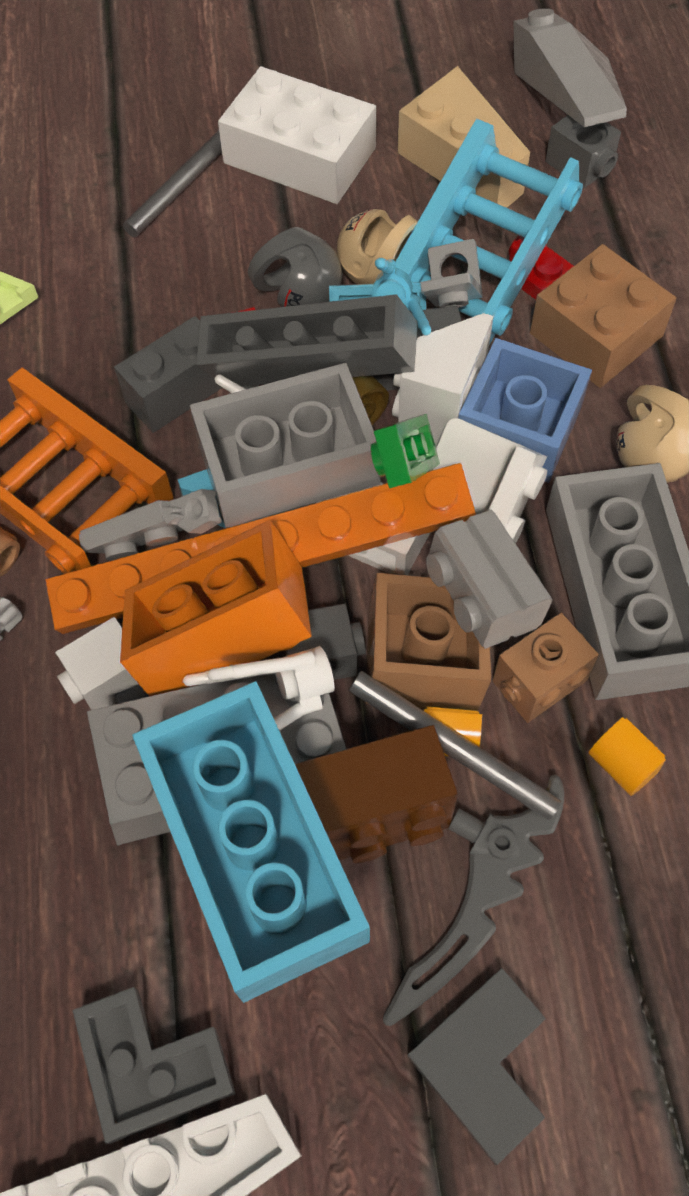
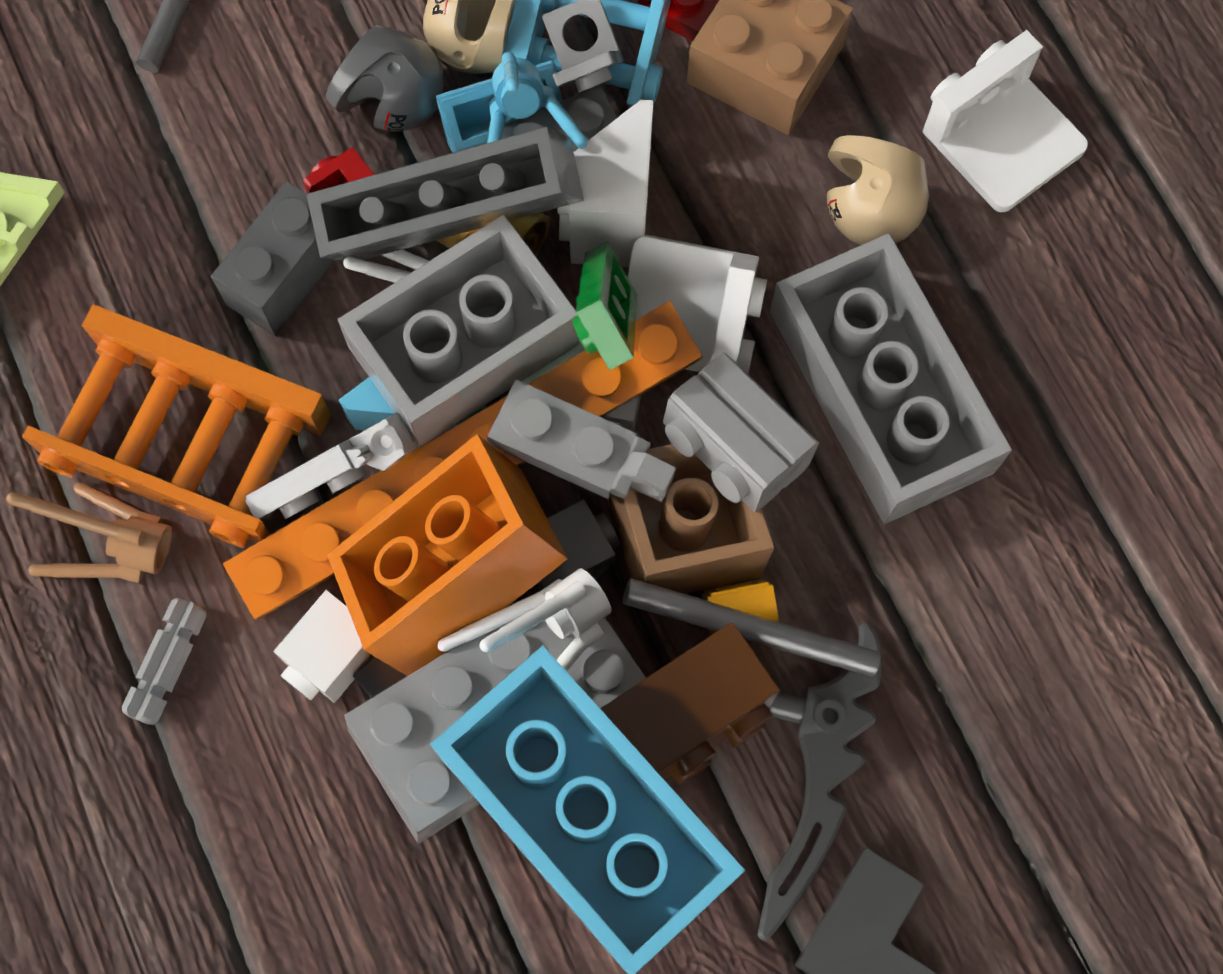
camera: 20 degrees left, 10 degrees up
(350, 553) = (577, 445): none -> light grey hinge
(527, 399) = (715, 187): medium blue brick -> none
(544, 667) = (817, 529): medium nougat head -> none
(627, 756) = (936, 582): light orange brick -> none

